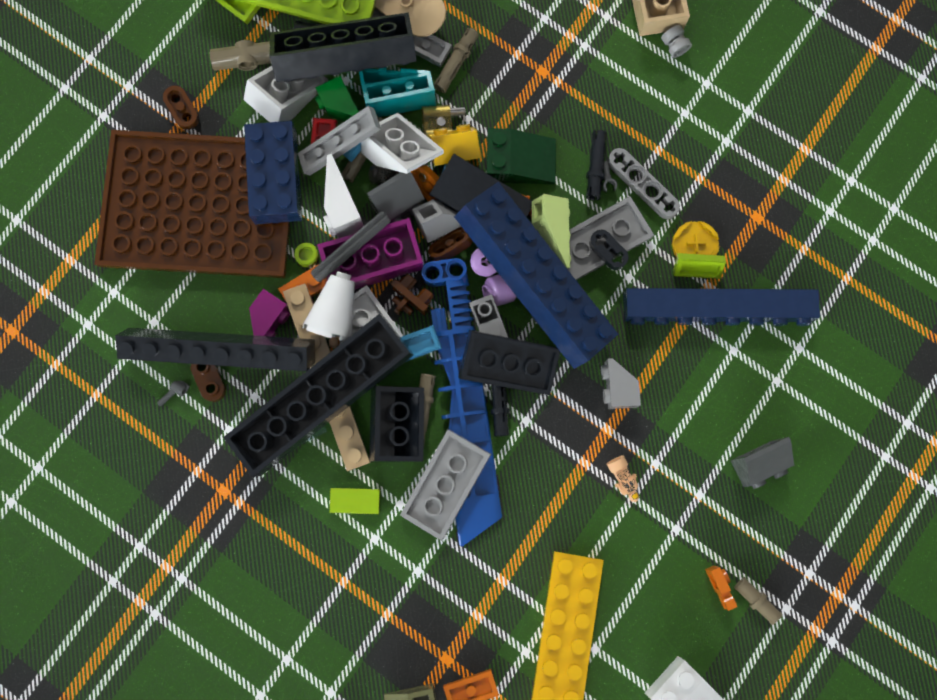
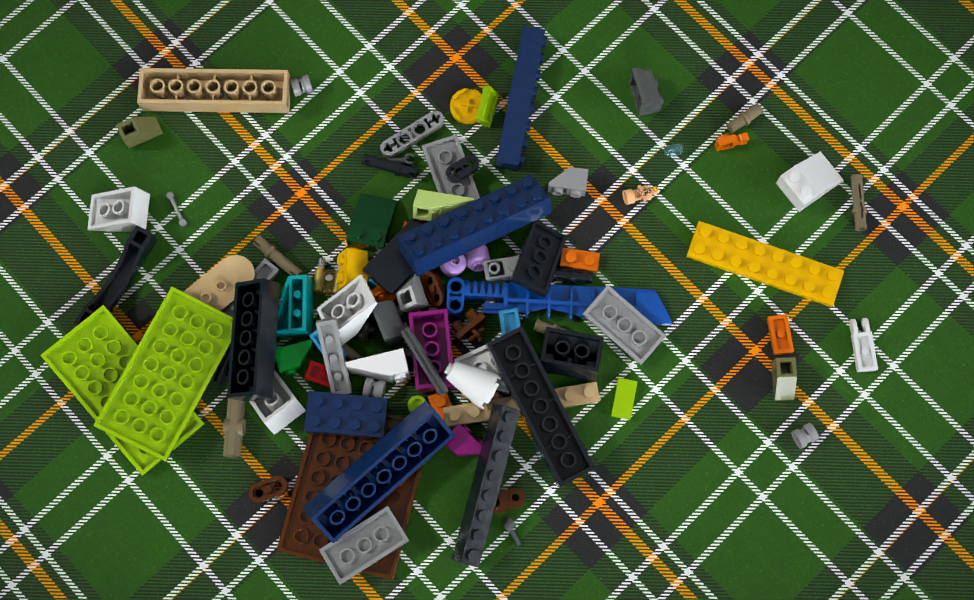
camera: 75 degrees left, 5 degrees down
(126, 223) = (364, 545): none -> light grey plate
(208, 220) = (378, 471): none -> dark blue brick
(315, 200) = (374, 388): none -> light grey wheel
(522, 416) = (580, 260): none -> orange plate
(692, 512) = (673, 150): none -> clear light blue tile

